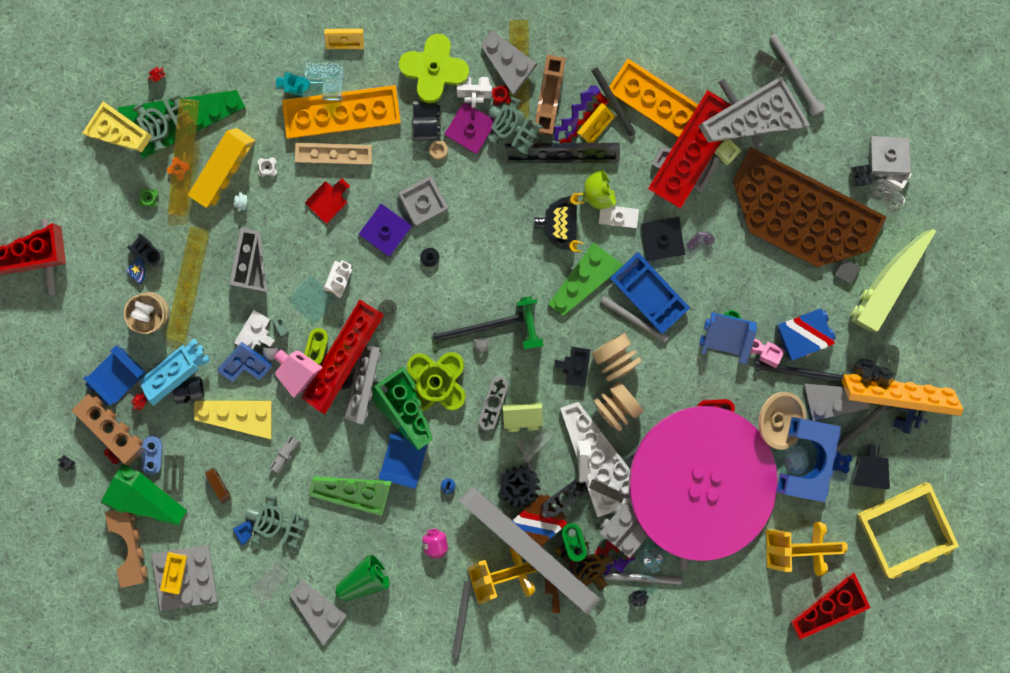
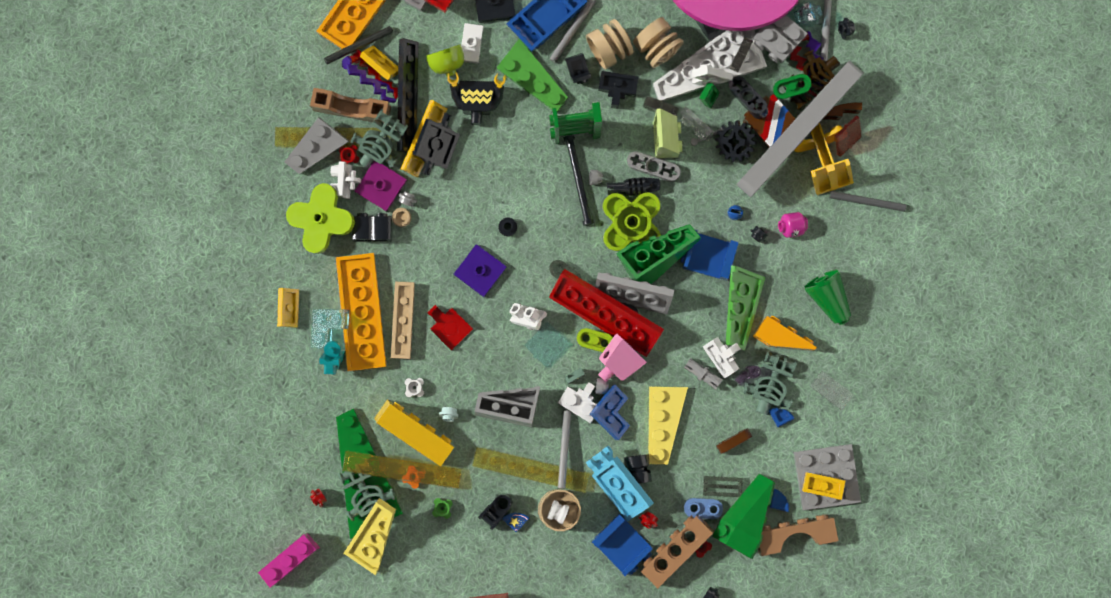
camera: 85 degrees left, 5 degrees down
(94, 48) = (288, 560): none -> dark pink brick
(160, 530) = (779, 501): none -> blue tile
(207, 317) = (564, 449): none -> light grey bar
(285, 499) = (748, 373): none -> clear purple arm
(301, 473) = (722, 356): none -> white hinge
(318, 611) = (859, 343): light grey wing -> none
(321, 529) = (776, 335): none -> light orange slope
(423, 201) = (452, 232): light grey plate -> none
(425, 509) = (758, 234): none -> black plate
(456, 155) = (407, 198): none -> light grey plate
(472, 384) = (635, 186): none -> black hinge
(511, 183) = (436, 144): none -> black plate
(518, 170) = (414, 164): none -> yellow plate
(525, 599) = (848, 136): none -> clear red piece
(553, 409) = (653, 104): none -> clear smoke beam
(566, 459) = (709, 95): none -> green tile
(592, 325) = (578, 68): none -> black bracket

